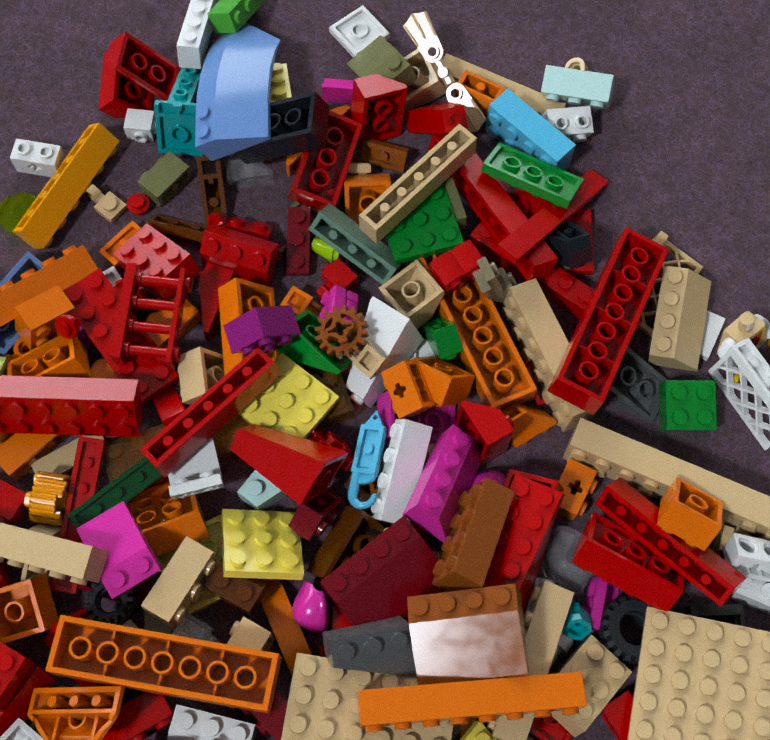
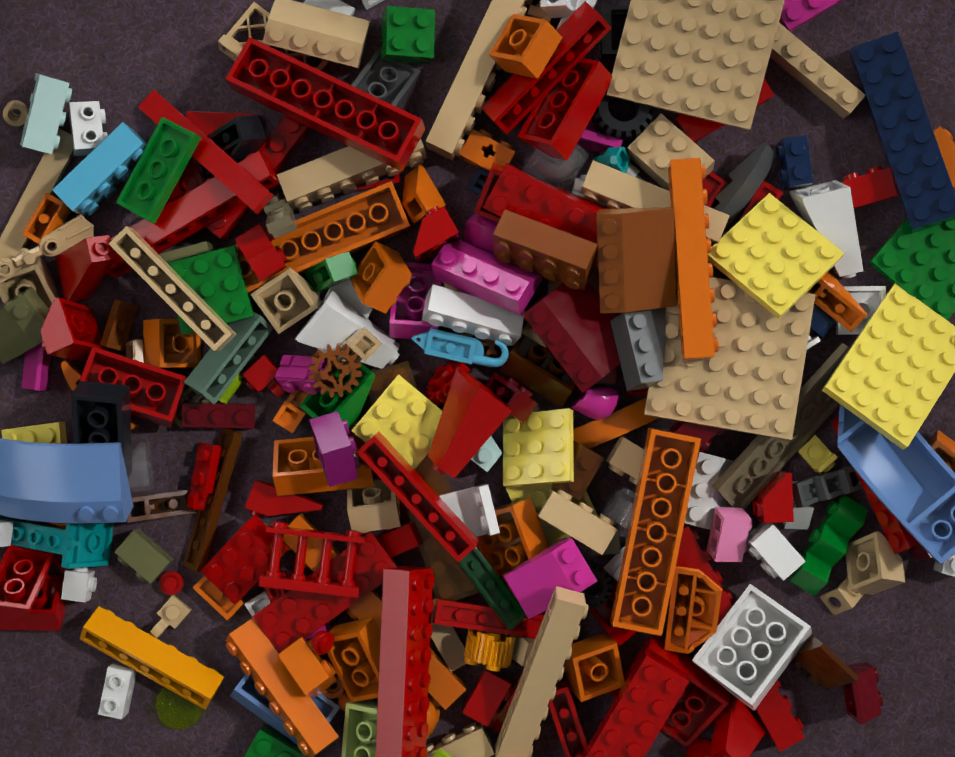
camera: 85 degrees left, 20 degrees up
(247, 255) = (235, 474): red slope -> none
(407, 389) = (394, 307): orange brick -> none

